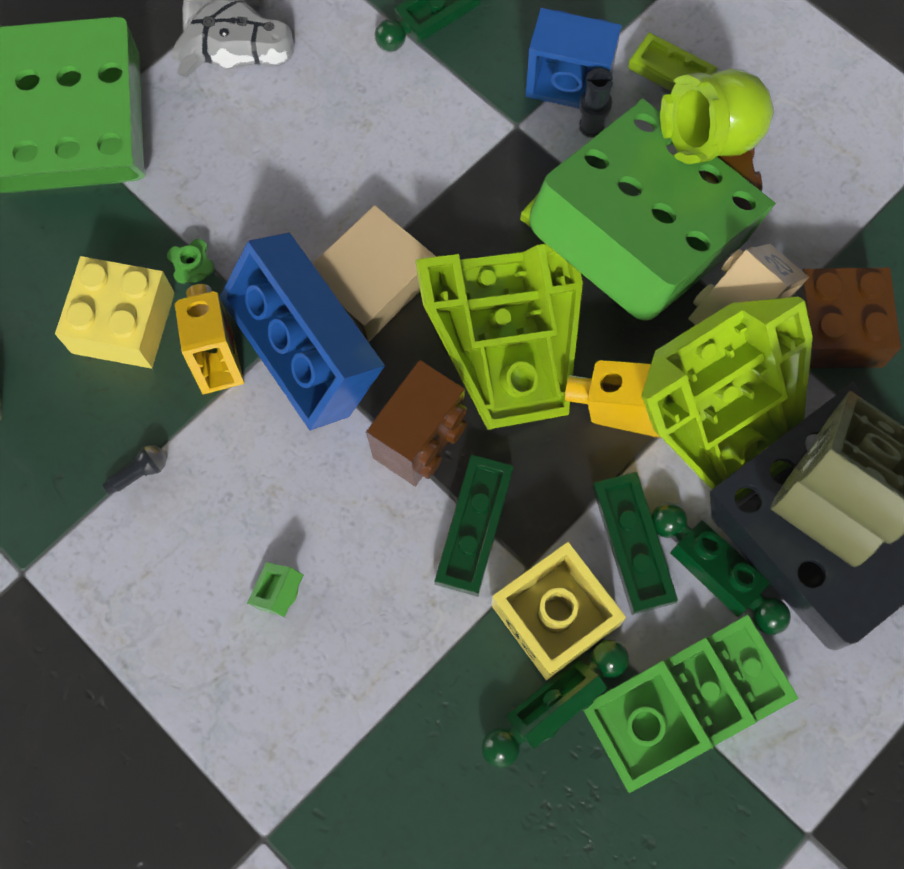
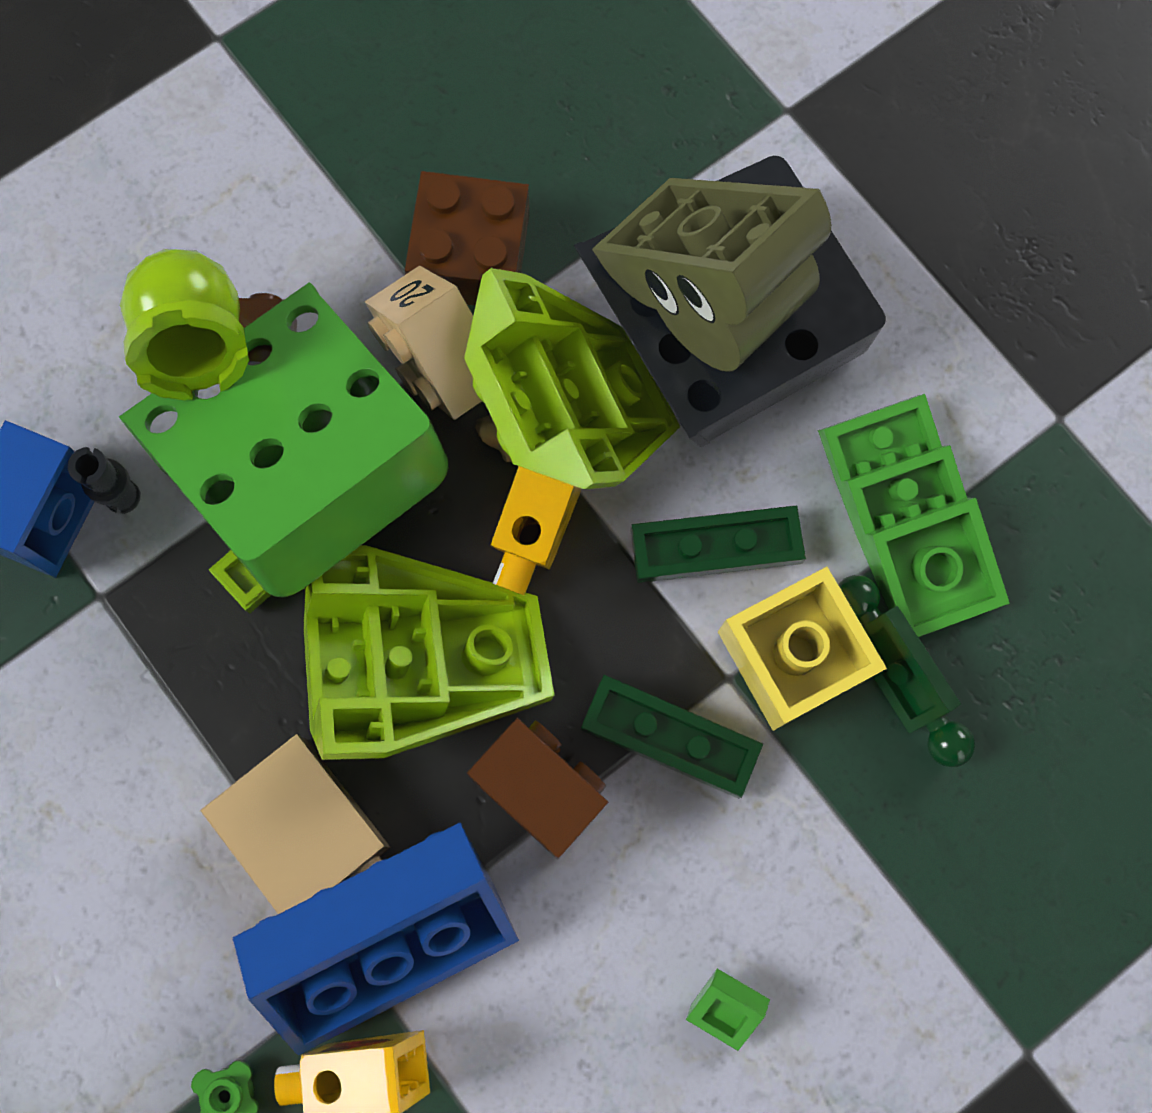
camera: 90 degrees left, 5 degrees up
(664, 62) = (62, 373): lime plate -> none
(721, 569) = (758, 451): dark green plate -> none

